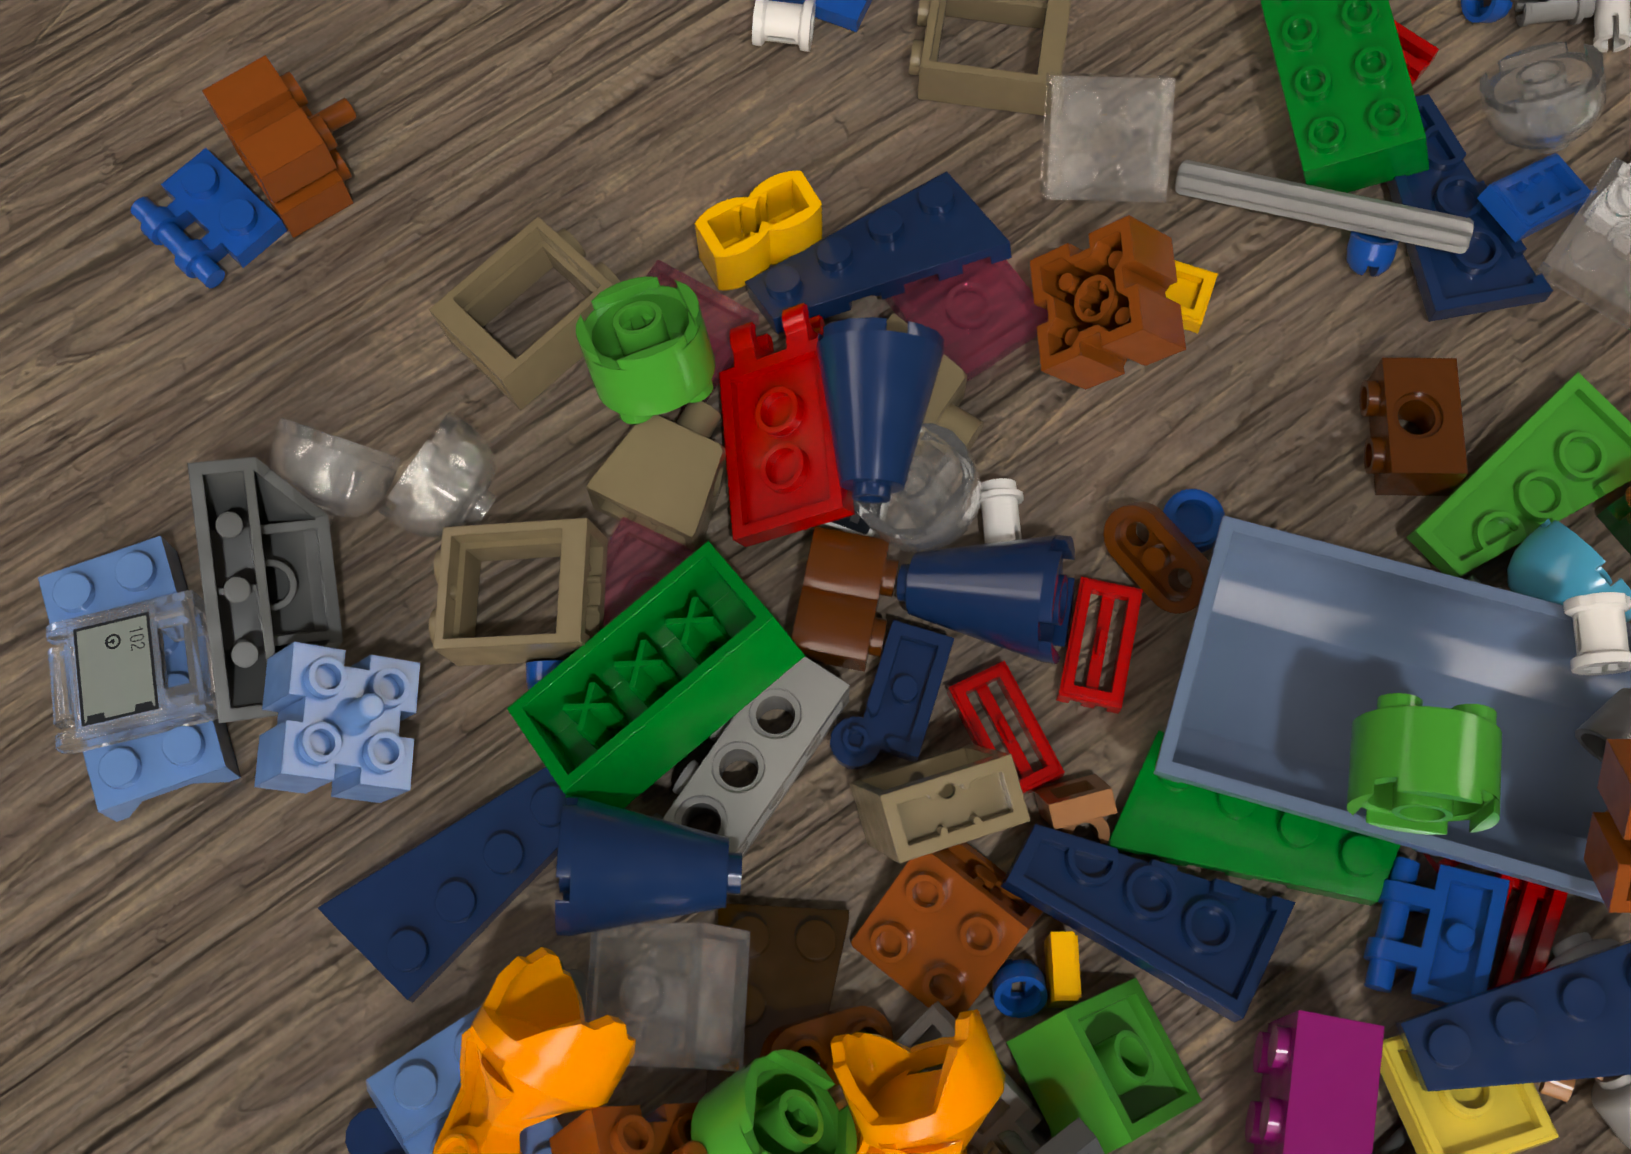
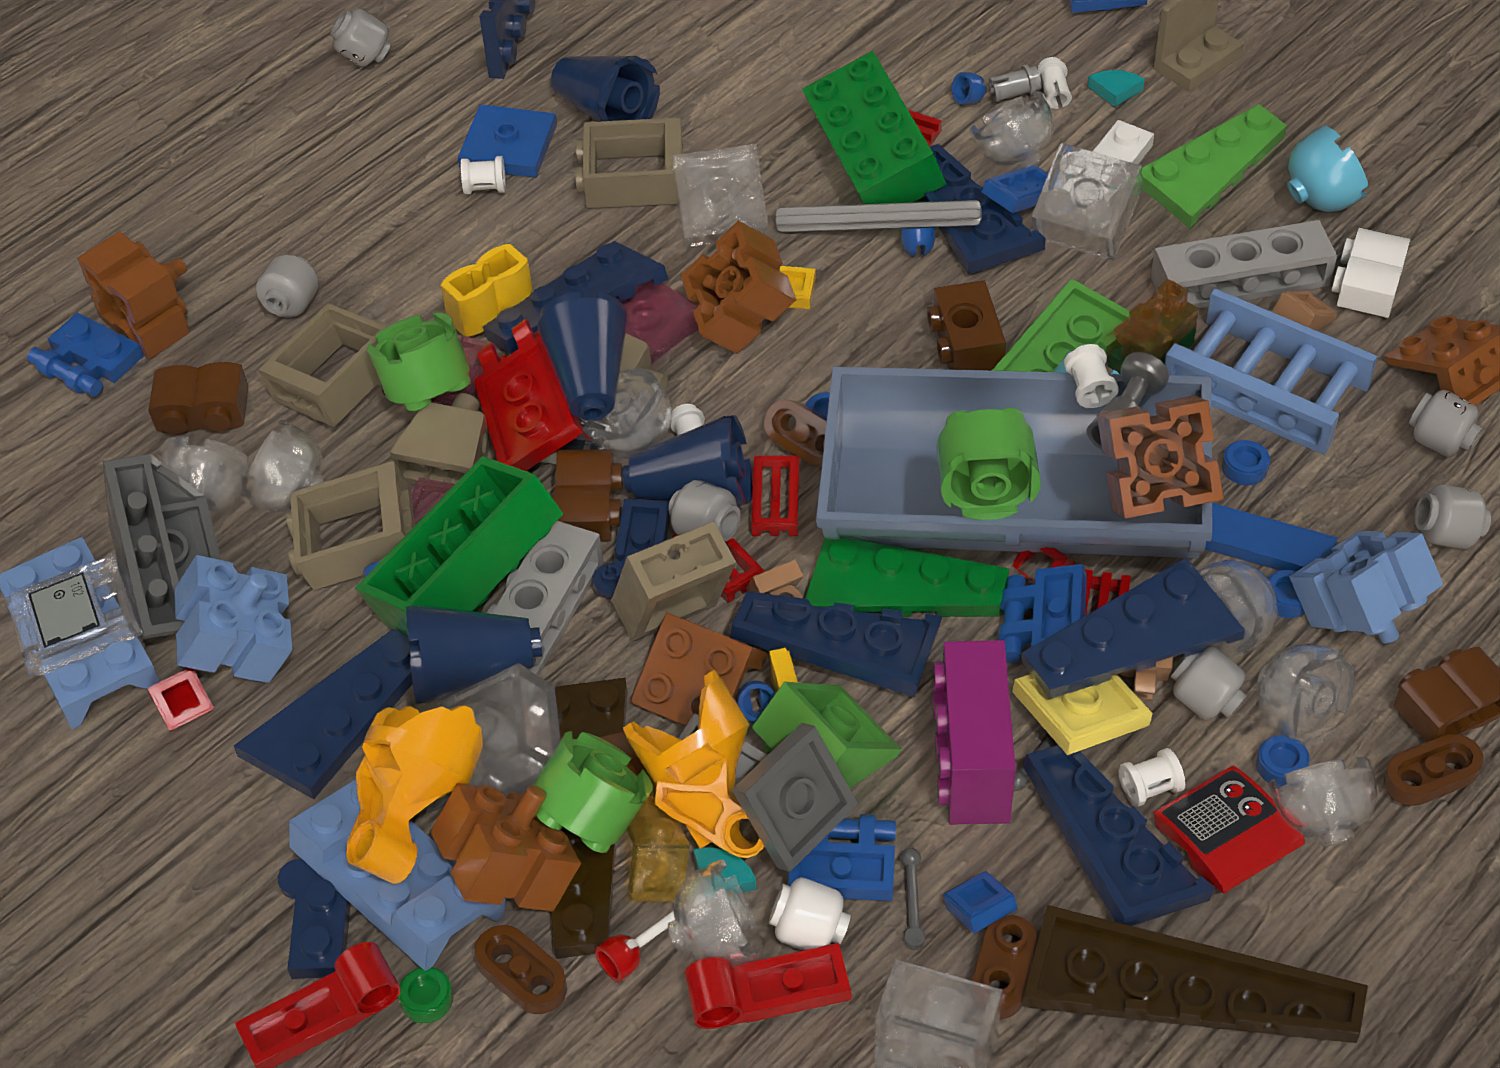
camera: 10 degrees left, 20 degrees down
(257, 814) = (180, 699): none -> slope
(346, 328) = (198, 398): none -> reddish brown brick
(490, 163) = (287, 286): none -> light grey head
(998, 680) = (701, 504): none -> light grey head

